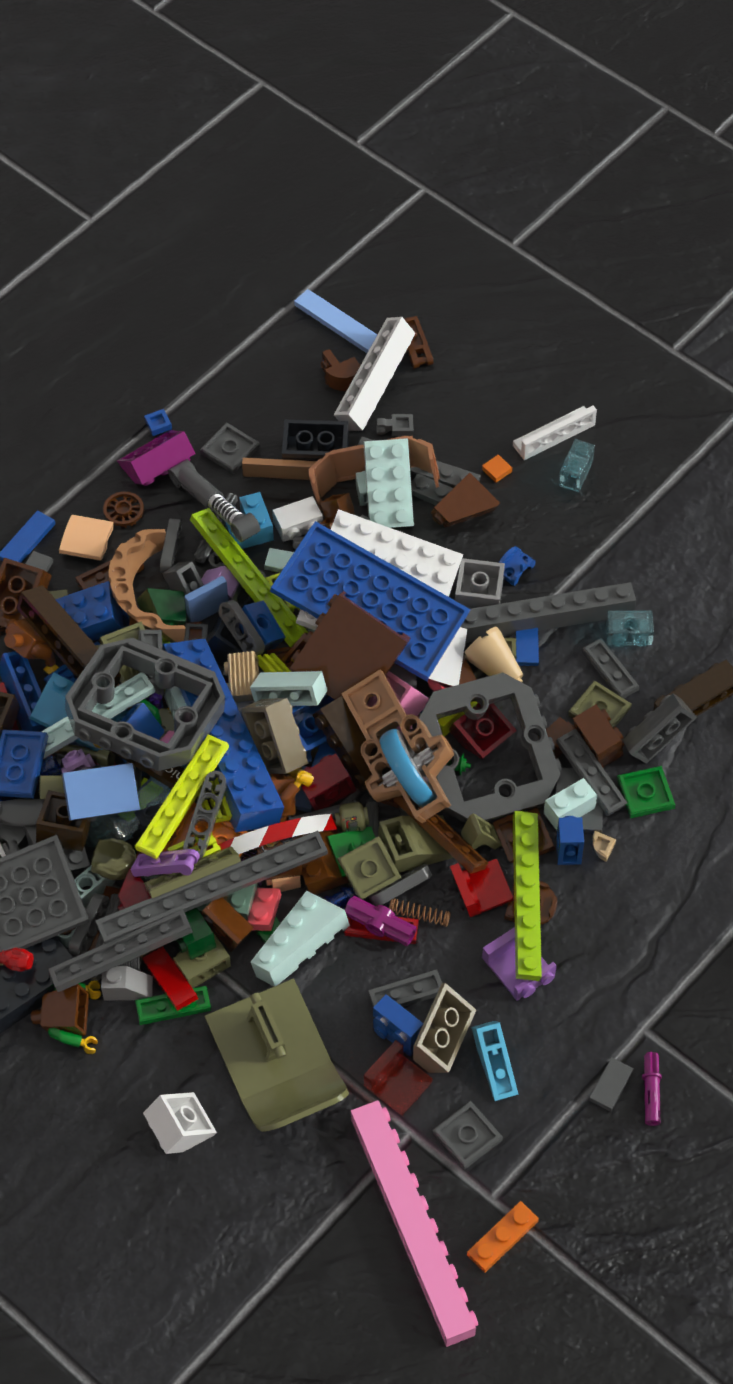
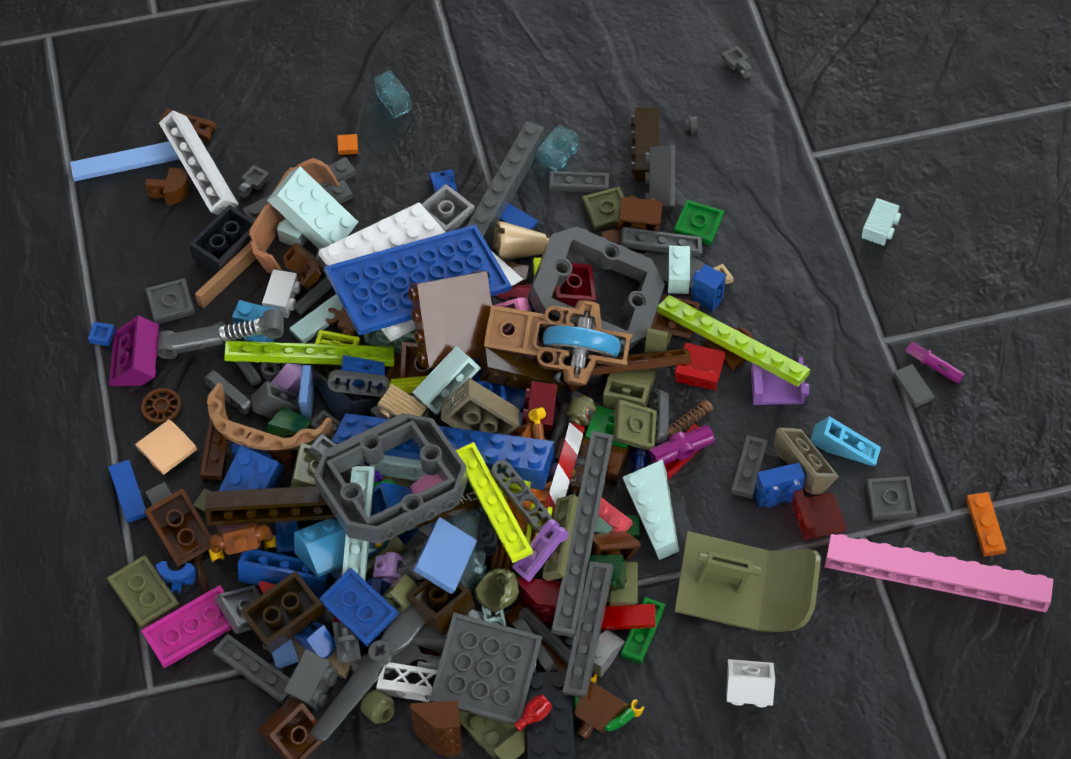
camera: 55 degrees left, 0 degrees up
(464, 502) = (363, 179): reddish brown slope -> none
(555, 432) = (348, 90): white fence -> none

